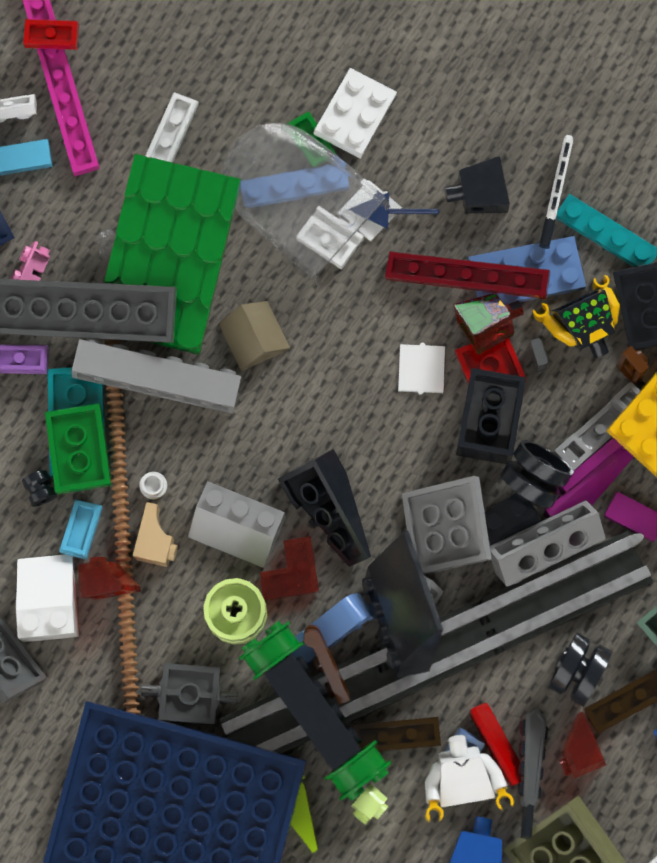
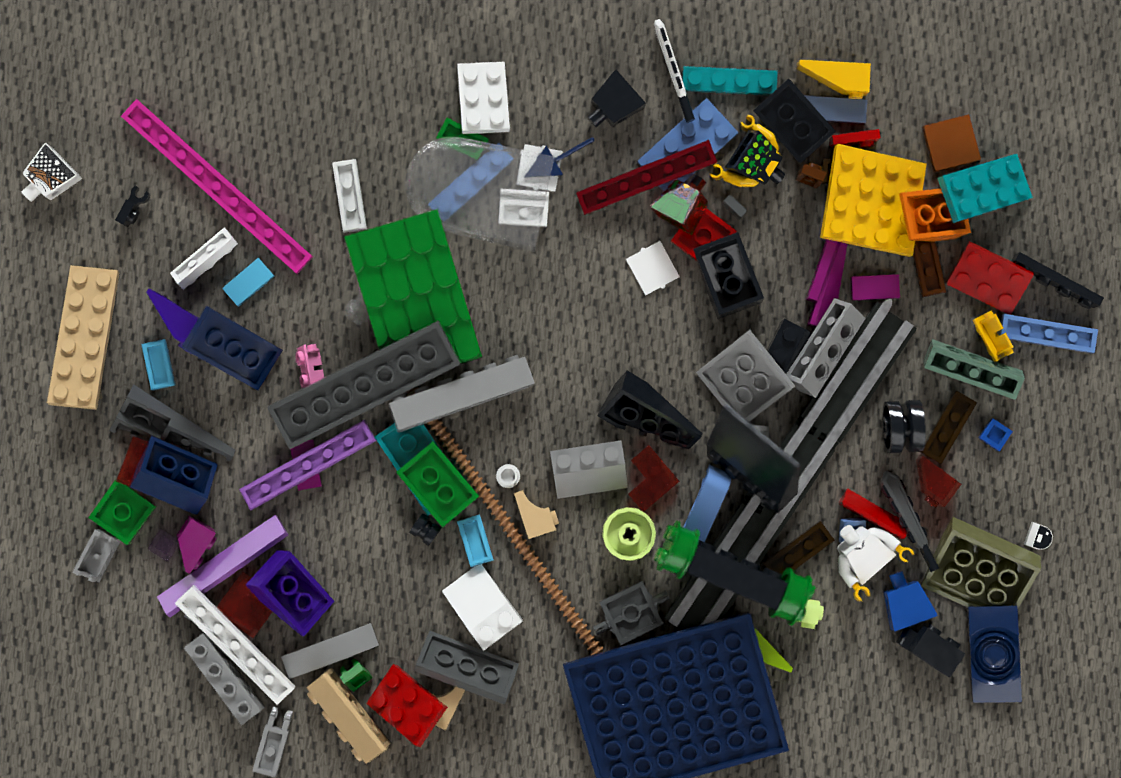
camera: 40 degrees left, 10 degrees up
(51, 34) = (209, 173): red plate -> none
(104, 580) = (518, 568): clear red slope -> none
(253, 334) = (512, 317): dark tan slope -> none
(325, 662) = (721, 534): reddish brown plate -> none
(536, 473) = (790, 301): black wheel -> none
(593, 434) = (809, 242): light grey slope -> none

